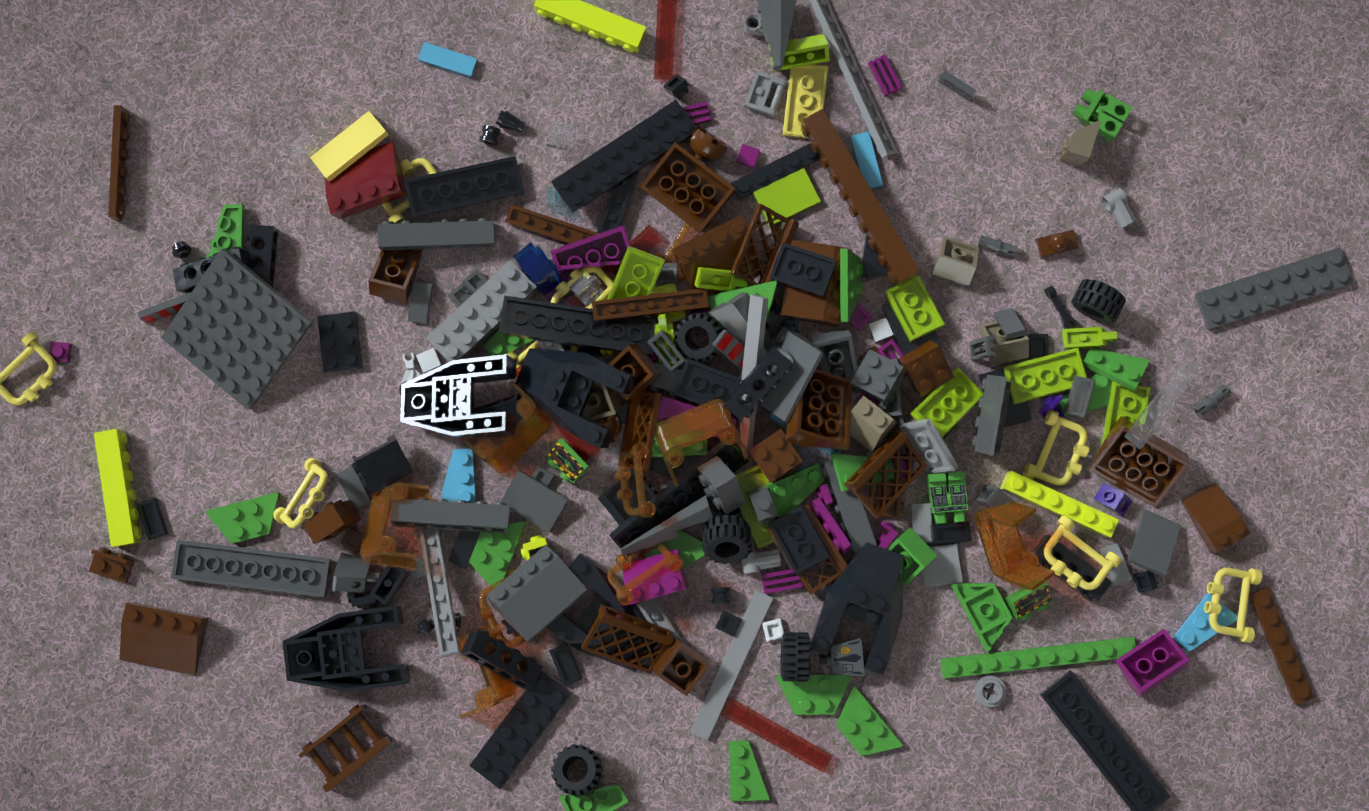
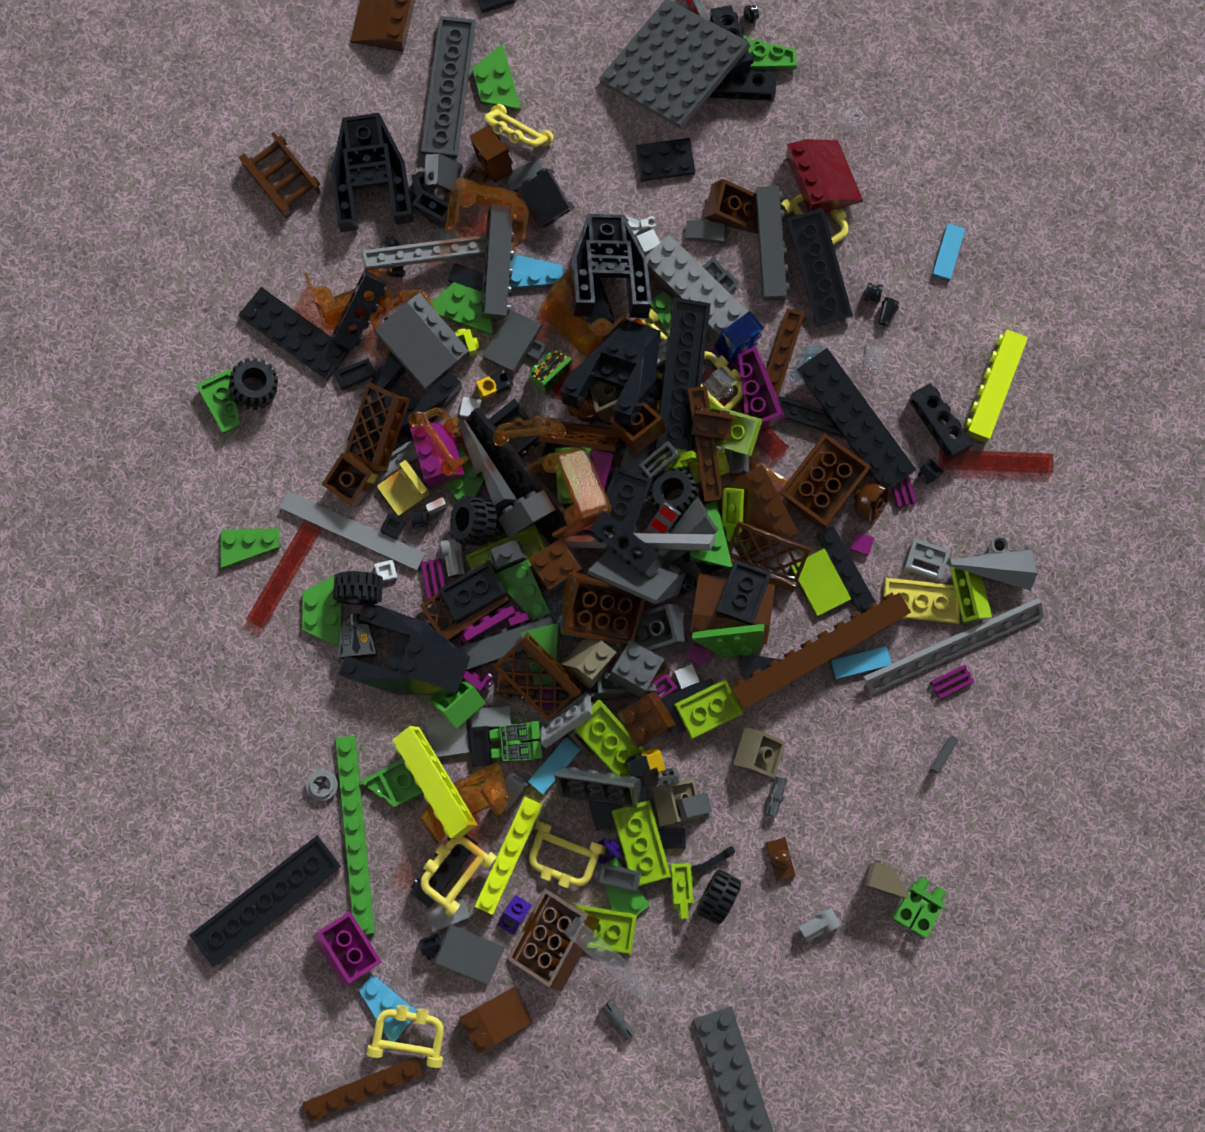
camera: 85 degrees right, 5 degrees down
(349, 146) = (857, 161): light yellow tile -> none
(581, 520) = (493, 385): none -> leg
(603, 544) = (468, 406): none -> white tile
(624, 83) = (951, 447): none -> black brick
(633, 296) = (712, 424): none -> reddish brown bracket
(689, 613) = (403, 489): none -> light yellow bracket
(707, 578) = (436, 506): none -> white tile
(864, 726) = (290, 660): bright green wing -> none
(967, 371) = (644, 761): none -> leg
(970, 461) = (558, 759): none -> medium azure tile
(993, 576) = (434, 782): none -> neon yellow brick
(1026, 601) = (408, 818): slope -> none
(1117, 367) = (651, 919): bright green wing -> none

